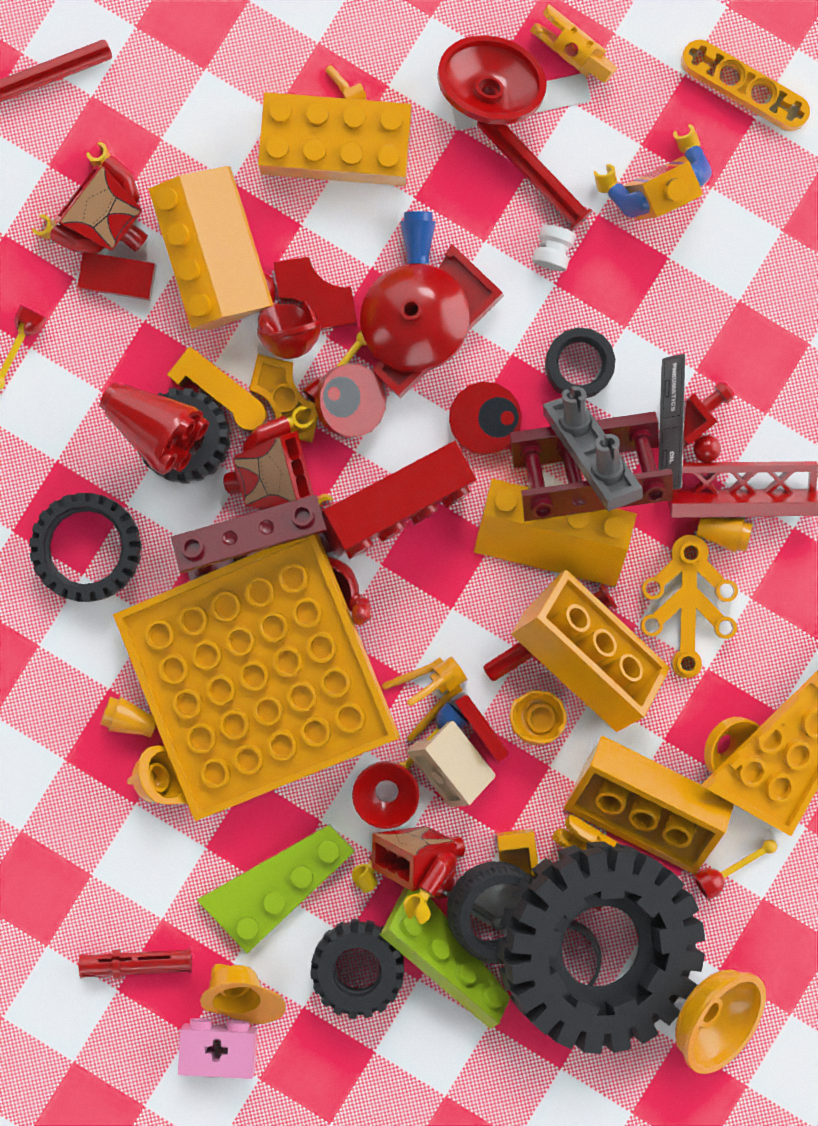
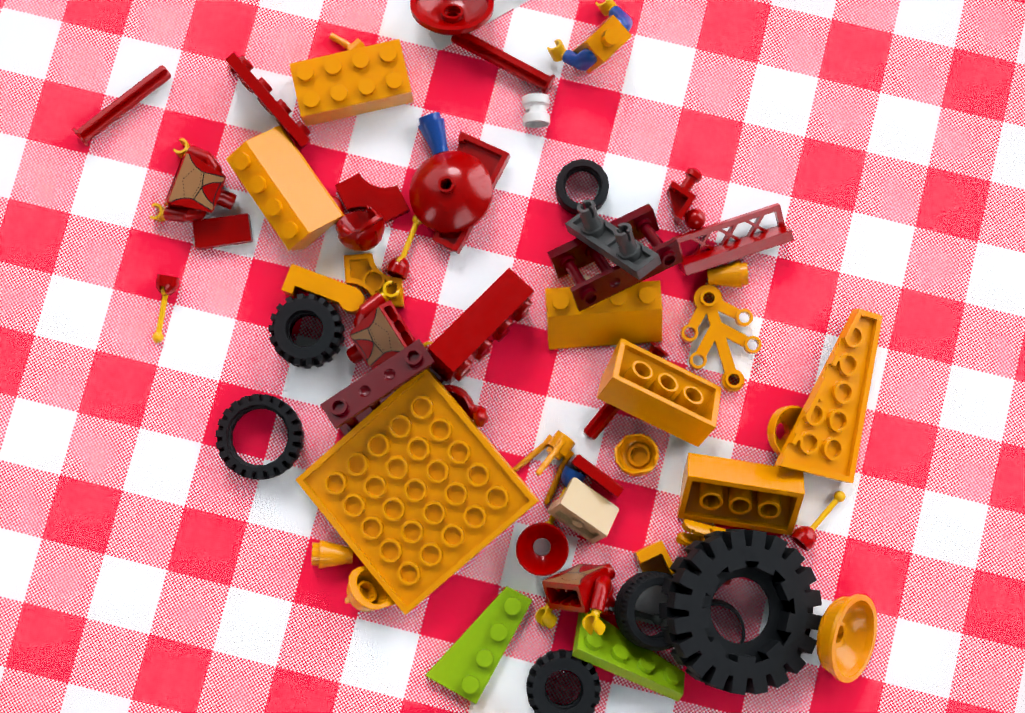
camera: 20 degrees left, 5 degrees down
(154, 425) = (283, 326): red cone -> none
(219, 114) = (241, 66): none -> red wing
(350, 400) = (422, 266): tile -> none
(484, 418) = (525, 248): red tile -> none
(672, 416) = (661, 202): flat silver sticker -> none

